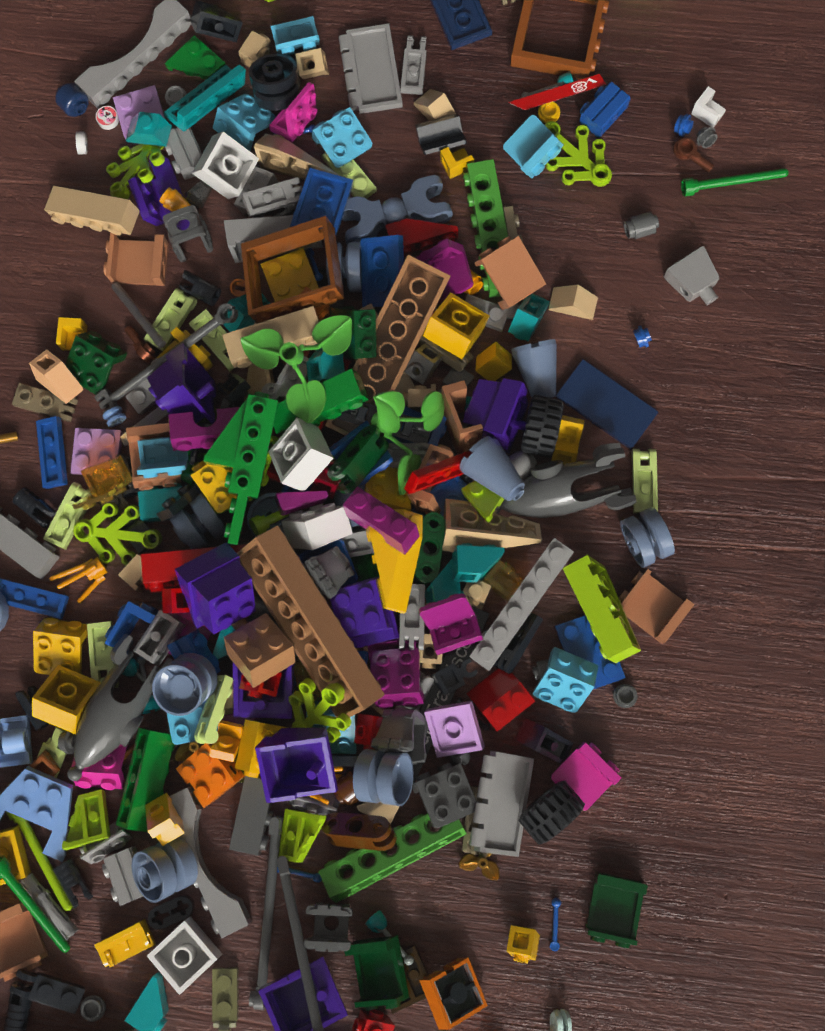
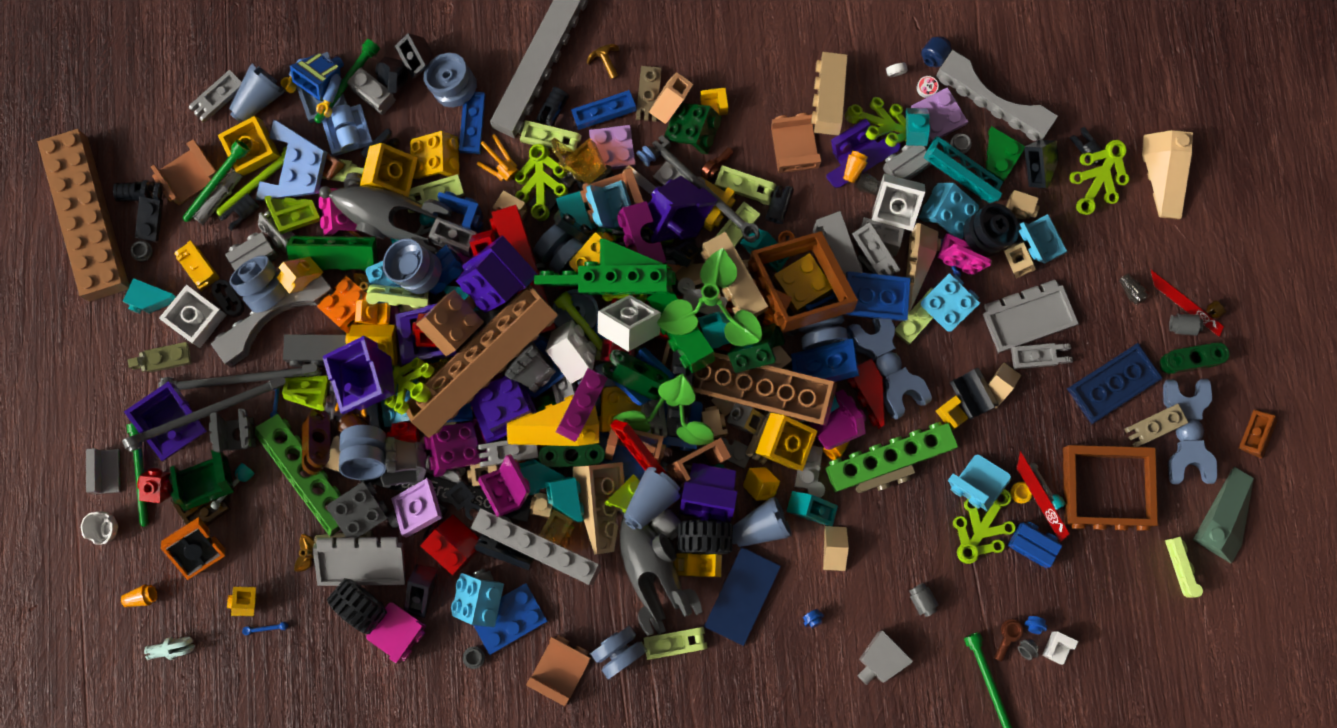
camera: 70 degrees right, 0 degrees up
(139, 316) = (742, 156): flat silver bar -> none
(196, 228) = (831, 190): dark grey piece -> none
(295, 501) = (587, 324): magenta slope -> none
(511, 271) = (847, 482): nougat panel -> none
(602, 608) = (544, 620): lime wedge -> none
(615, 909) = (284, 679): dark green panel -> none

